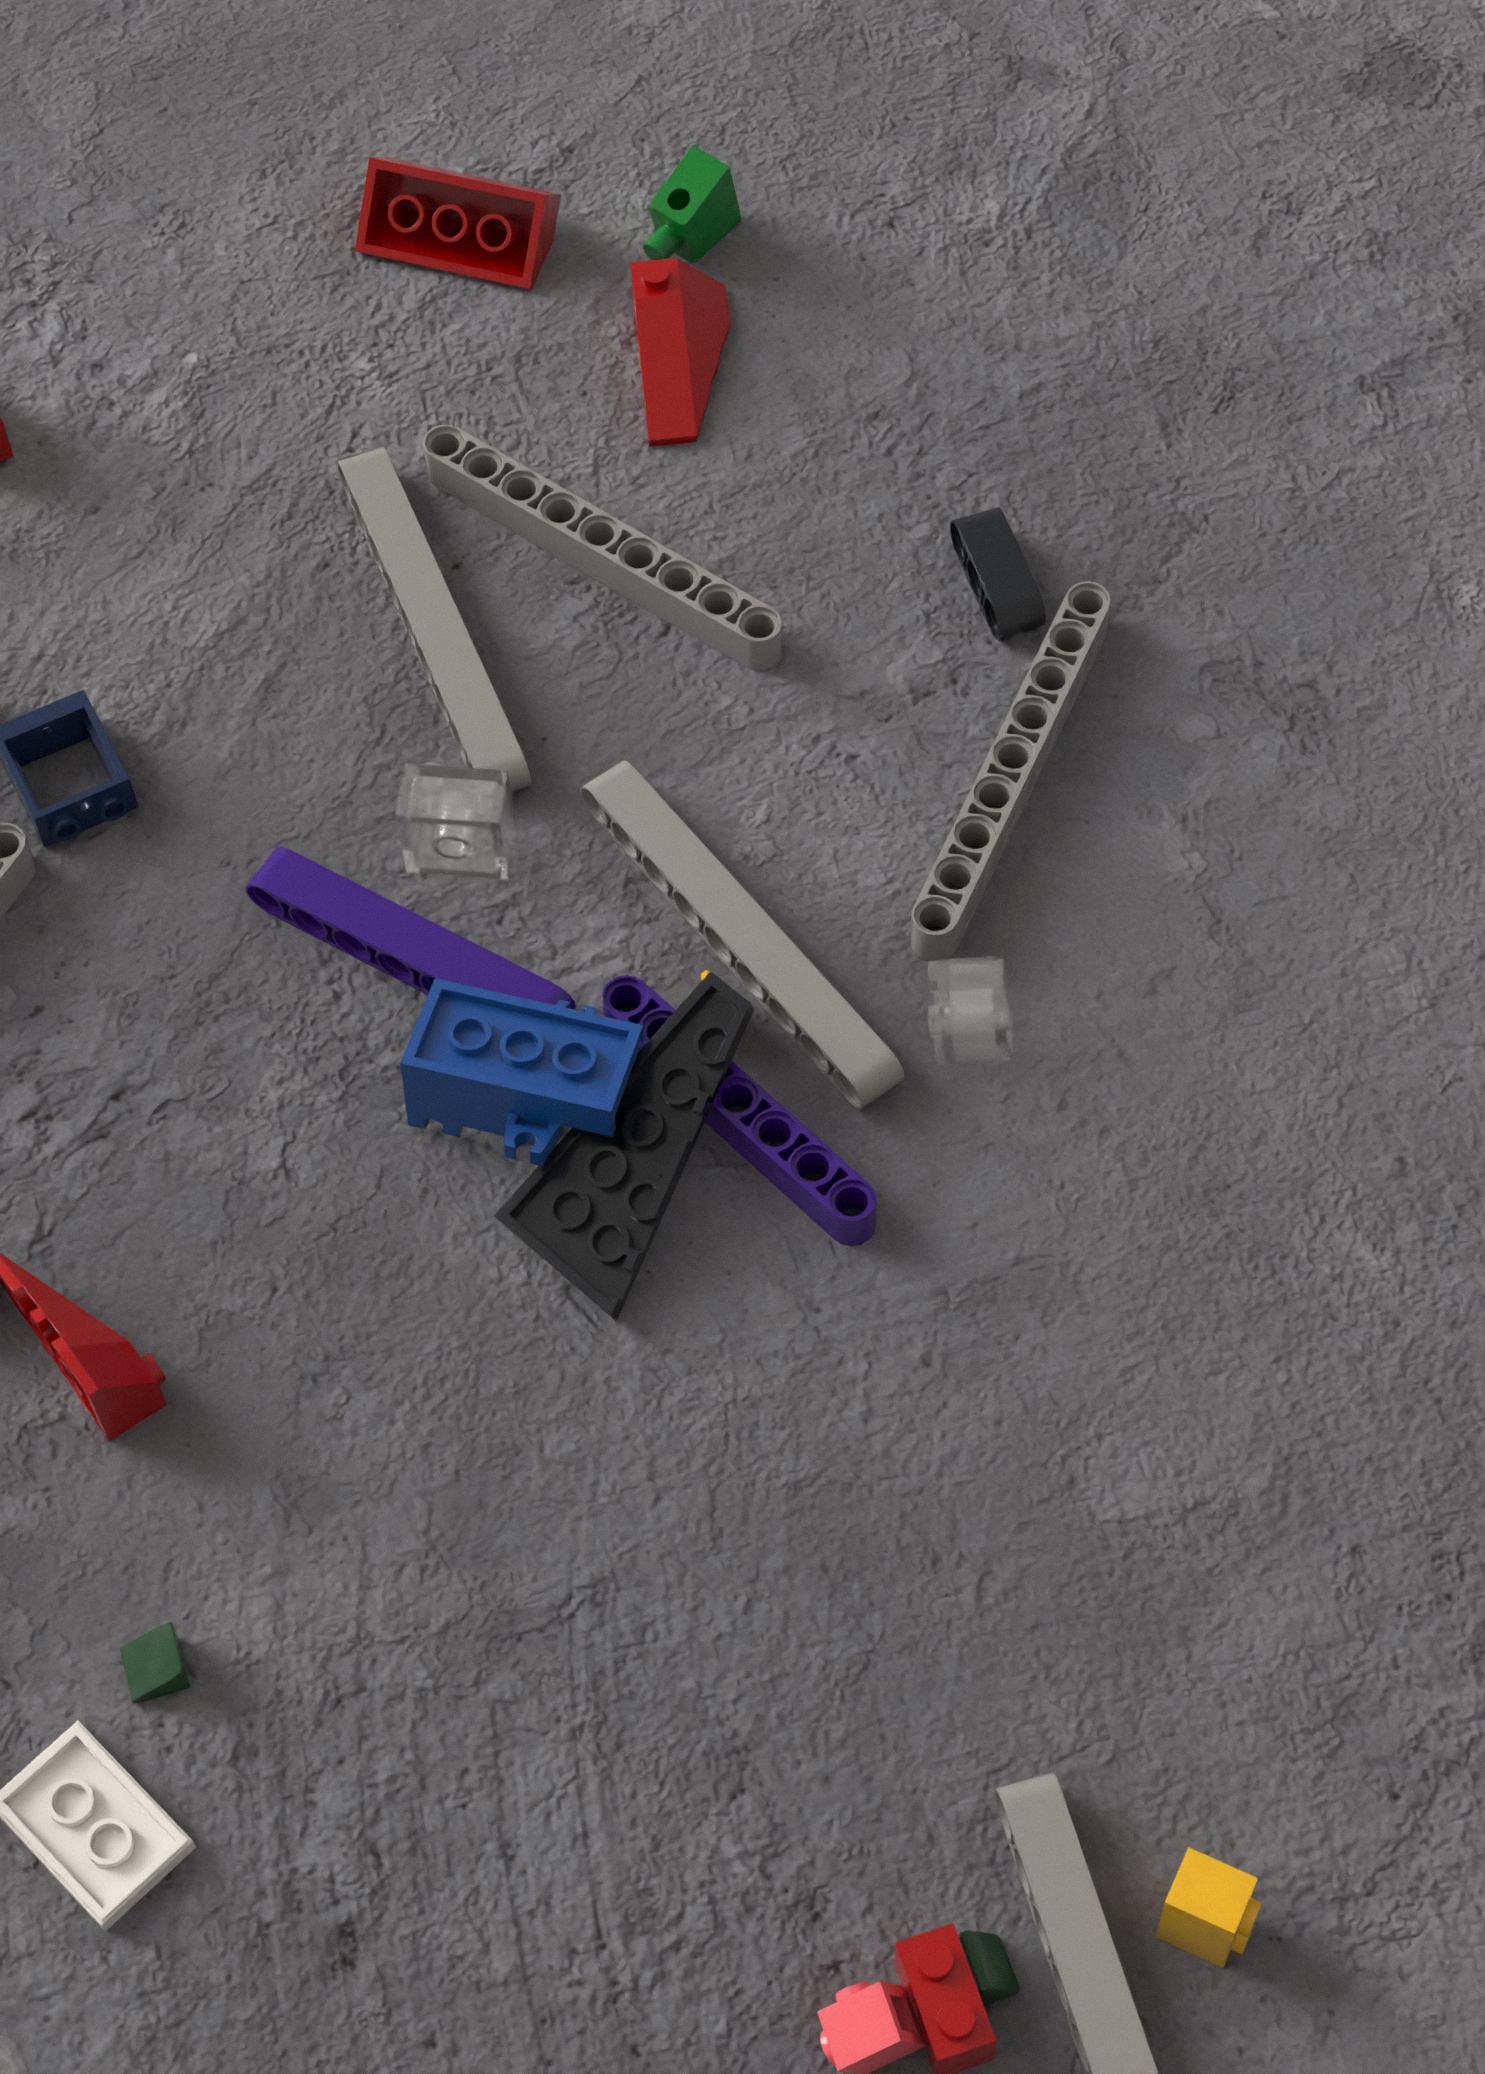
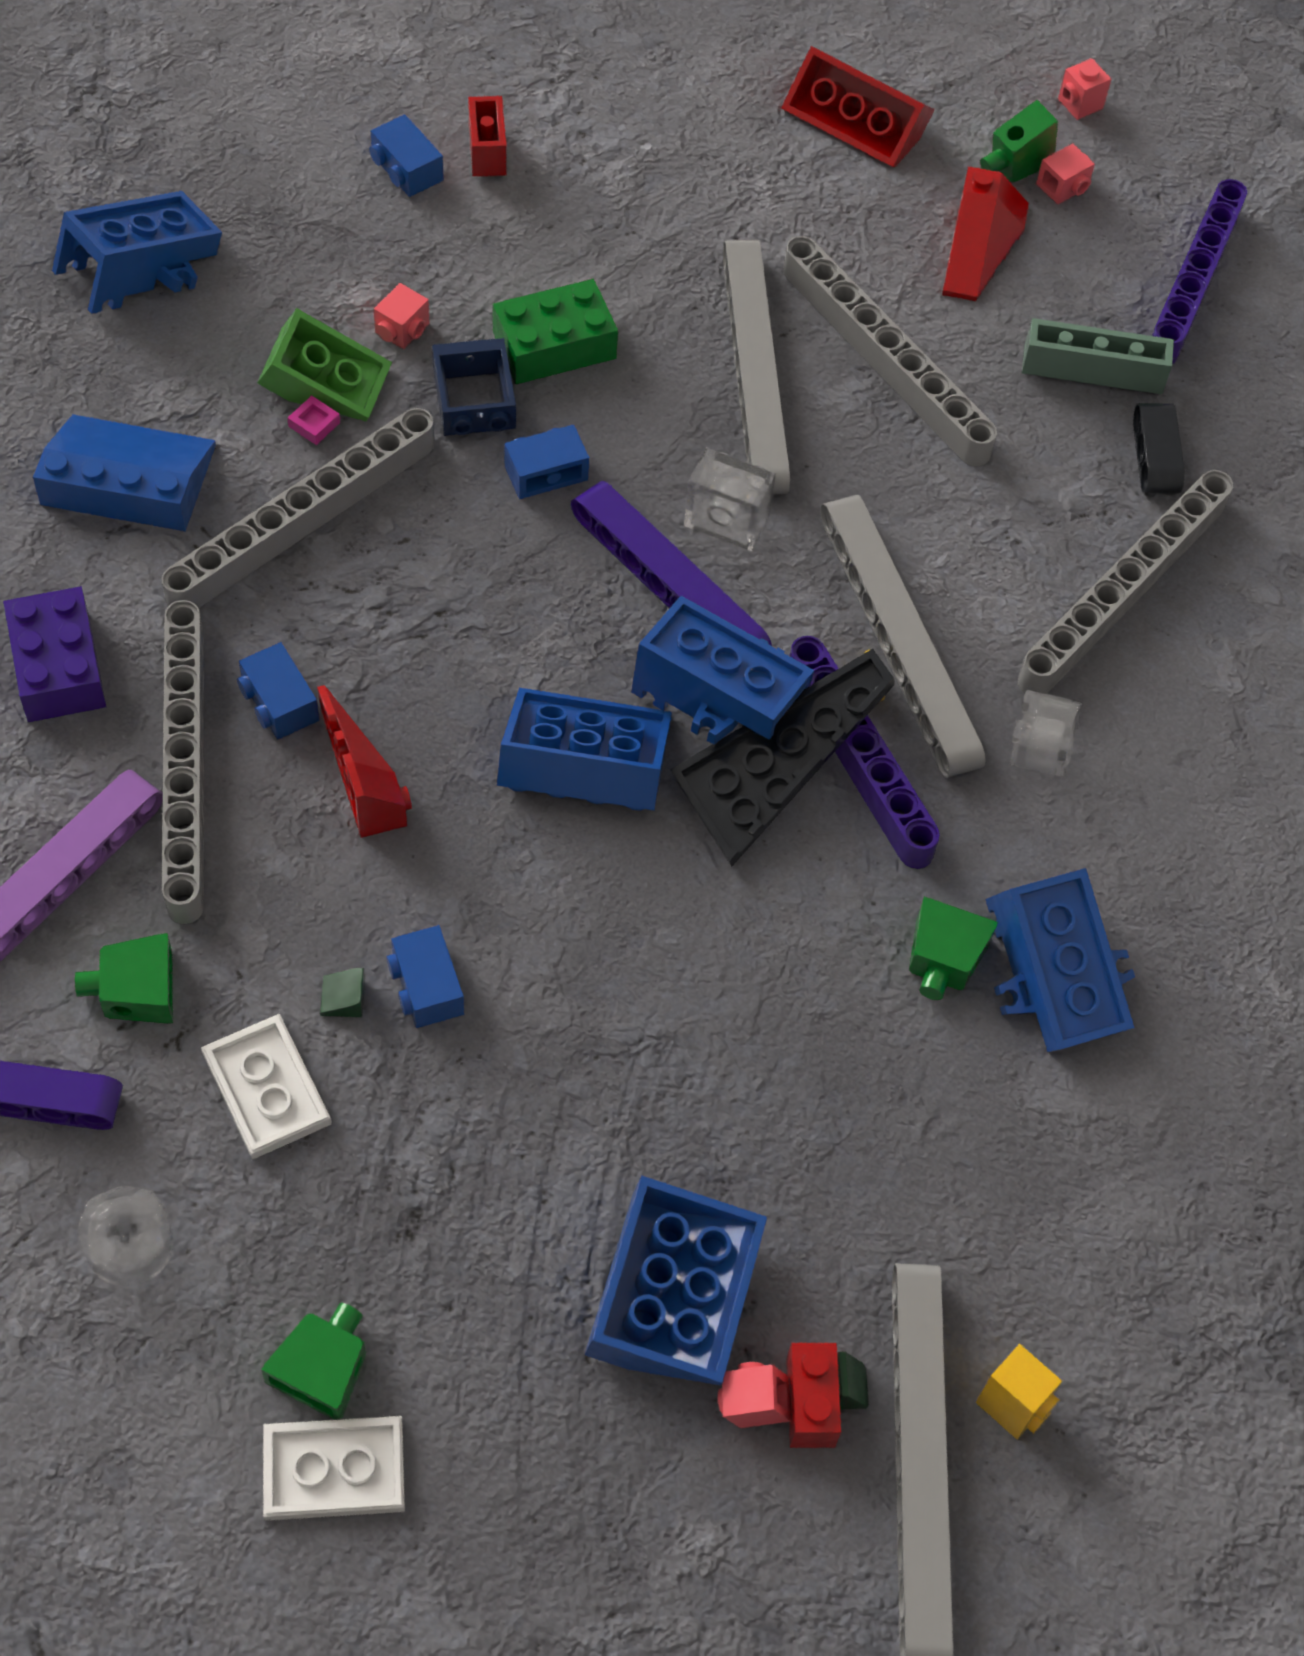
camera: 10 degrees right, 0 degrees up
(149, 657) = (555, 331): none -> green brick
(194, 842) = (546, 461): none -> blue brick
(260, 1605) = (427, 977): none -> blue brick
(370, 1224) = (584, 749): none -> blue slope
(721, 1914) = (676, 1284): none -> blue slope
(750, 106) = (1084, 88): none -> coral brick
(761, 231) = (1065, 174): none -> coral brick
(880, 472) = (1097, 356): none -> sand green brick
(931, 1339) = (947, 946): none -> green torso
(974, 317) = (1200, 264): none -> dark purple beam
(1085, 1312) = (1061, 960): none -> blue piece

